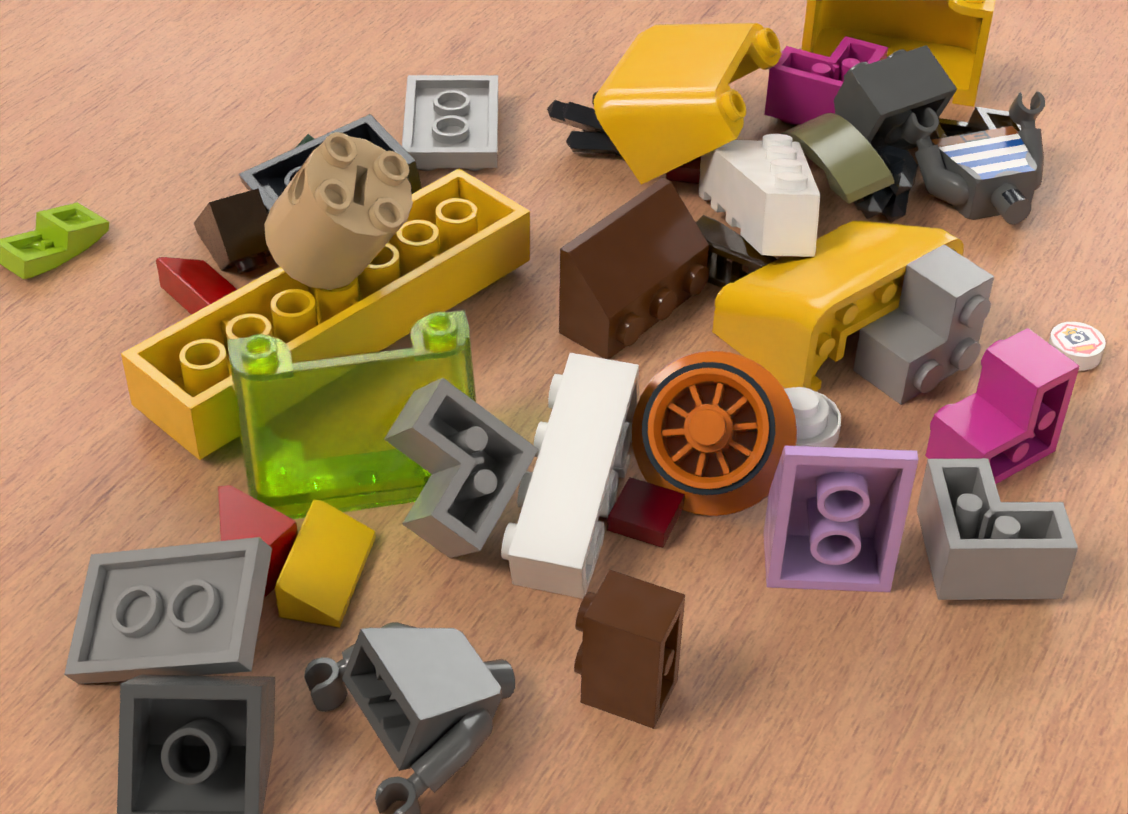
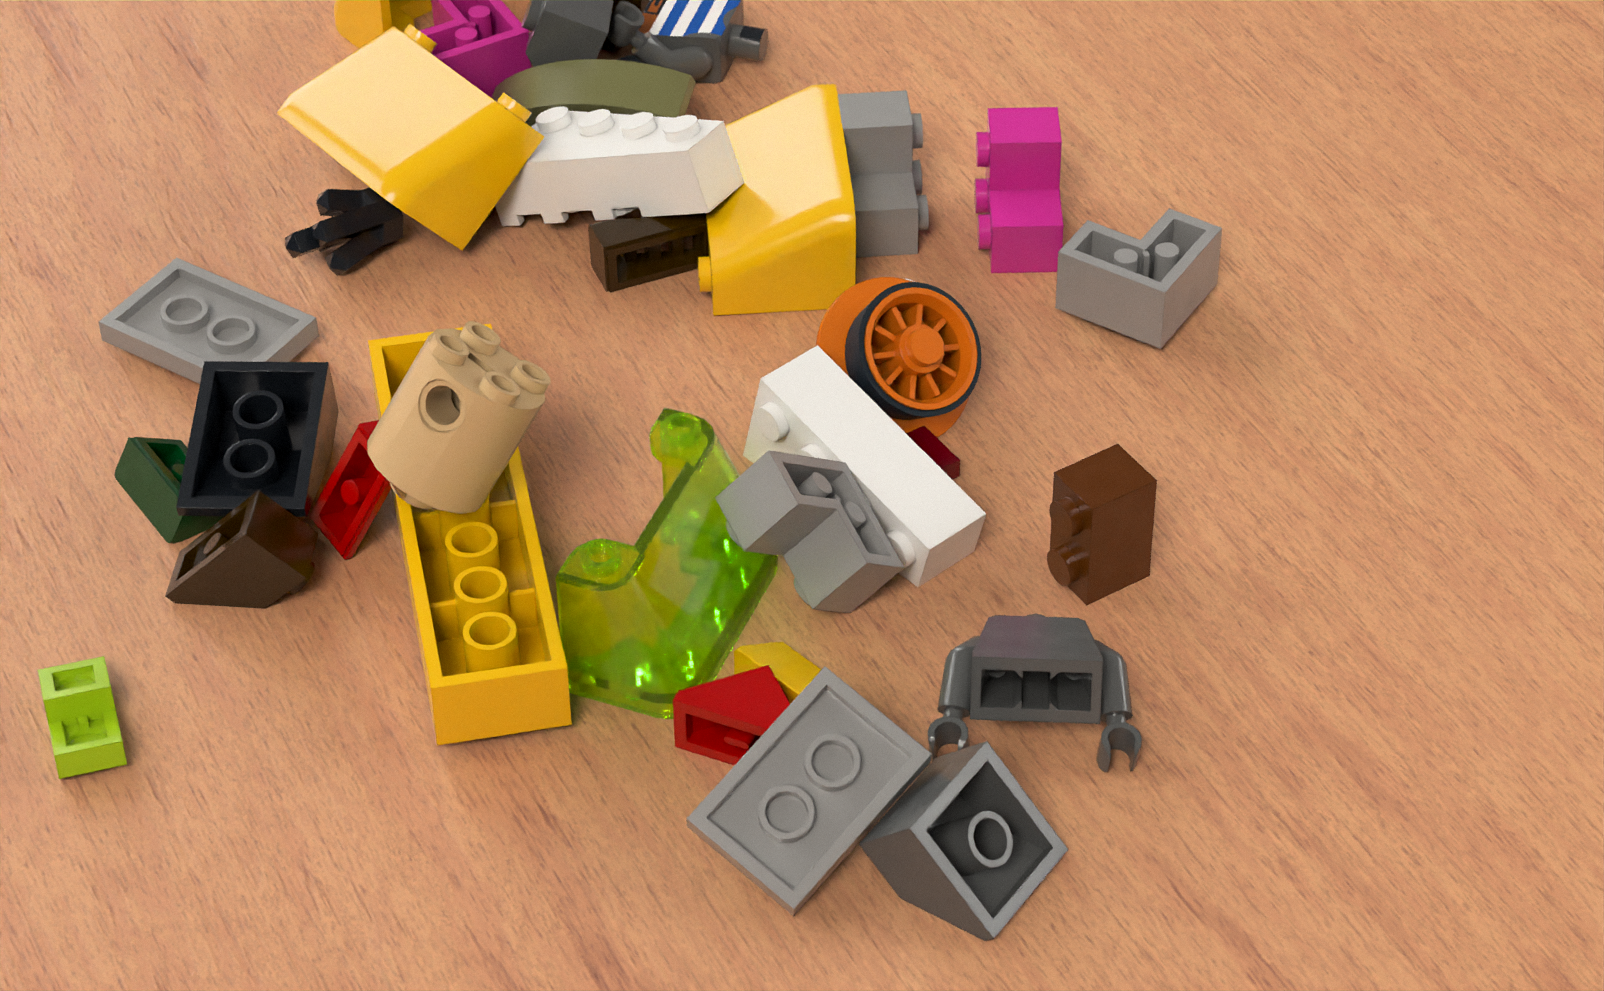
camera: 55 degrees left, 0 degrees up
(192, 282) = (312, 630): red slope -> none
(631, 271) = (626, 315): reddish brown slope -> none
(837, 517) = (1069, 345): lavender slope -> none
(1079, 343) = (953, 115): tile -> none

